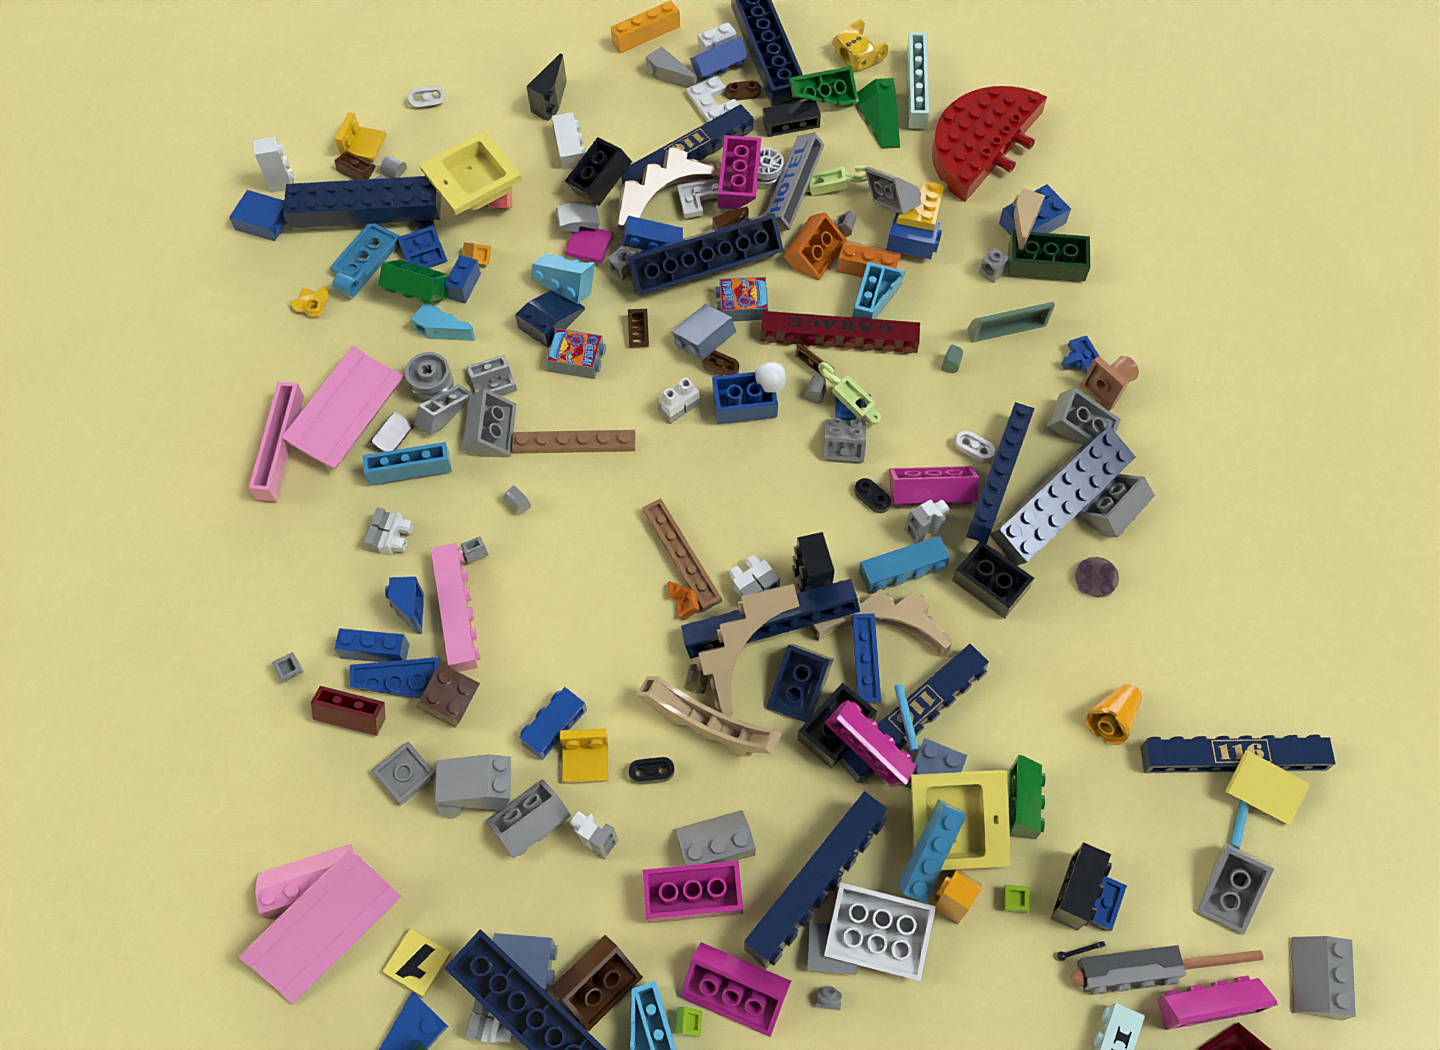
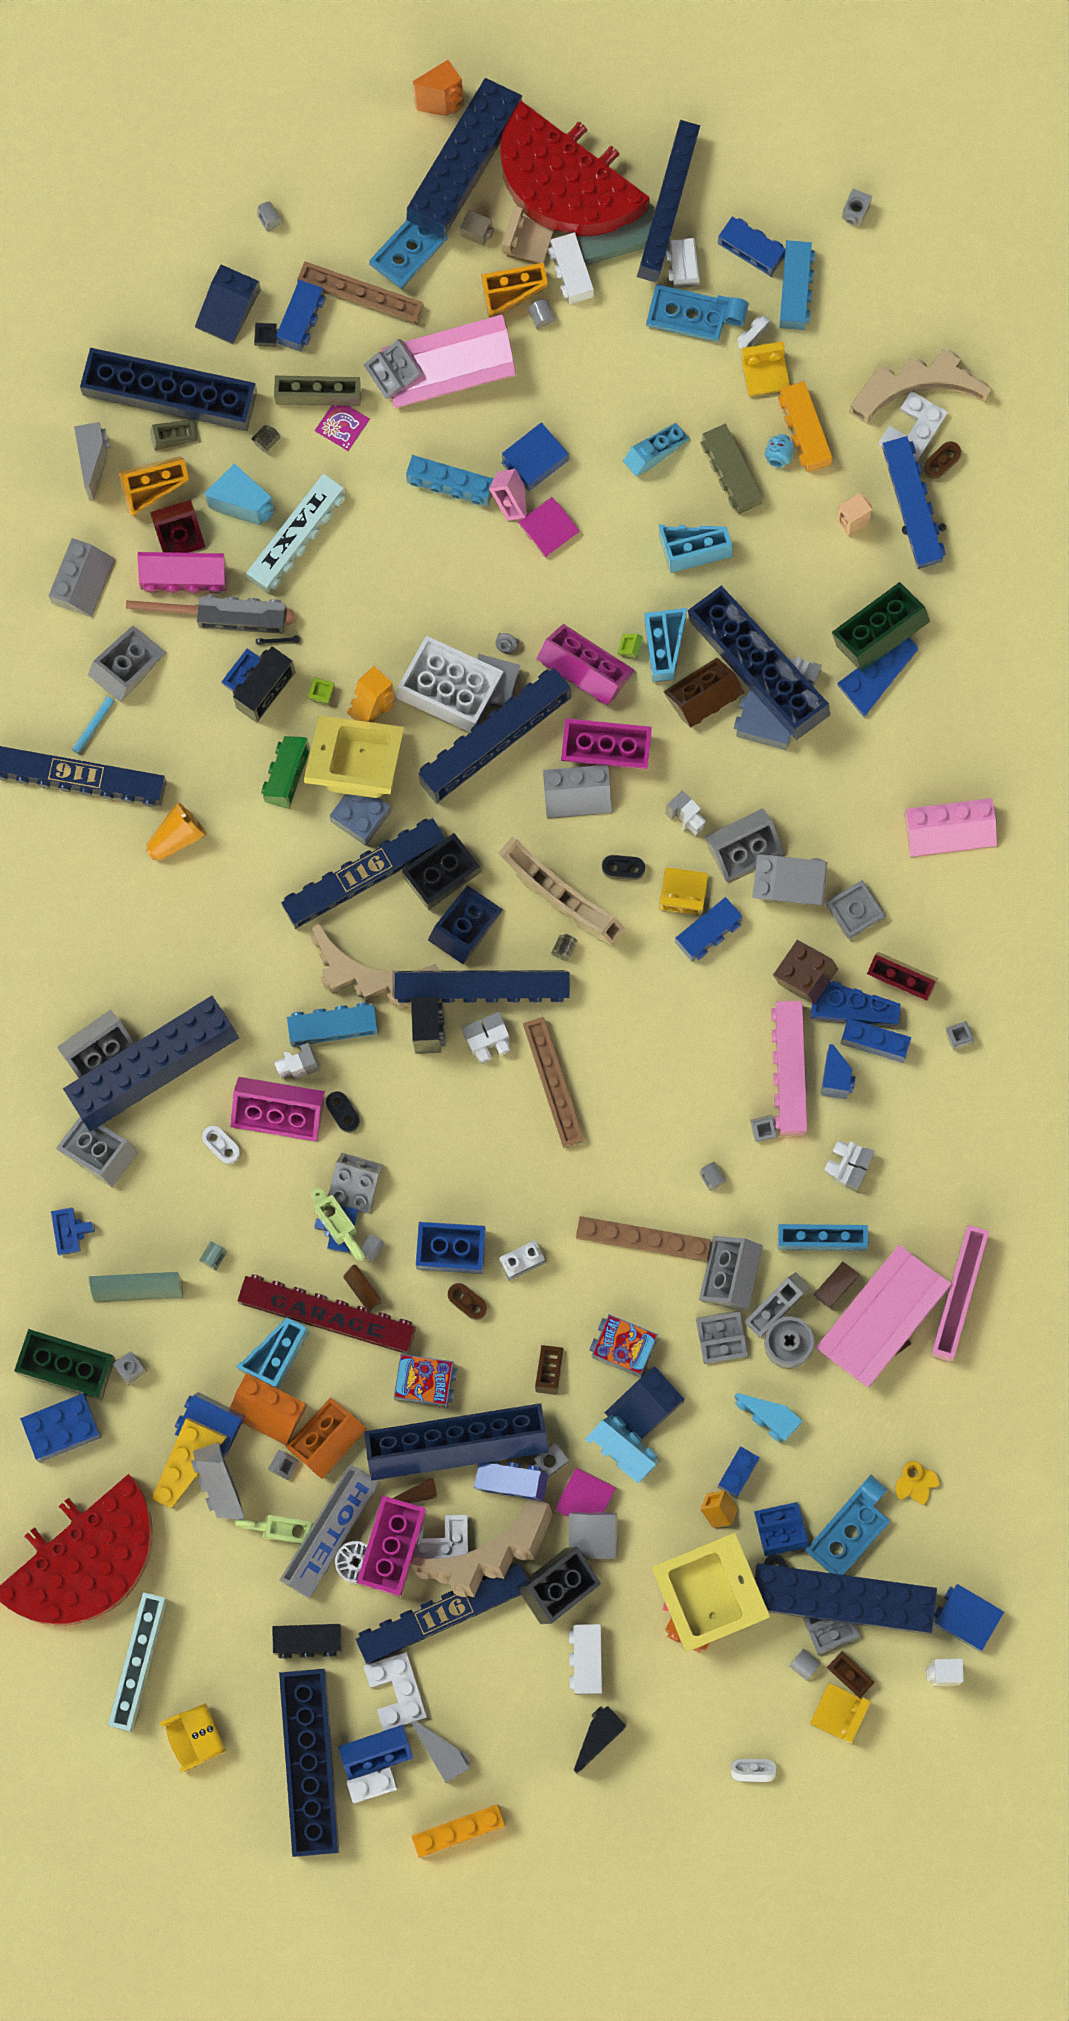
camera: 165 degrees left, 15 degrees up
(320, 926) = (936, 775): bright pink hinge -> none
(413, 281) = (792, 1471): green brick -> none
(417, 962) = (858, 740): light yellow tile -> none
(685, 600) = (559, 1032): orange slope -> none
(704, 331) = (478, 1339): sand blue brick -> none
(720, 661) = (495, 976): tan arch -> none
(743, 90) = (355, 1702): reddish brown plate -> none
(771, 376) = (419, 1252): white hair -> none
(828, 86) = (248, 1670): green wedge -> none
(866, 657) = (396, 931): blue plate -> none
(871, 744) = (417, 834): dark pink slope -> none
(879, 108) = (195, 1632): green wedge -> none
(906, 718) = (375, 862): medium azure bar -> none
(931, 851) = (388, 731): dark azure brick -> none
(992, 579) = (250, 987): black brick -> none
(1000, 473) = (207, 1097): dark blue brick -> none
(1025, 214) = (78, 1409): tan slope -> none
(1087, 577) = (153, 980): plate -> none
(1108, 381) = (52, 1189): nougat plant -> none
(1267, 787) = (64, 737): light yellow tile -> none

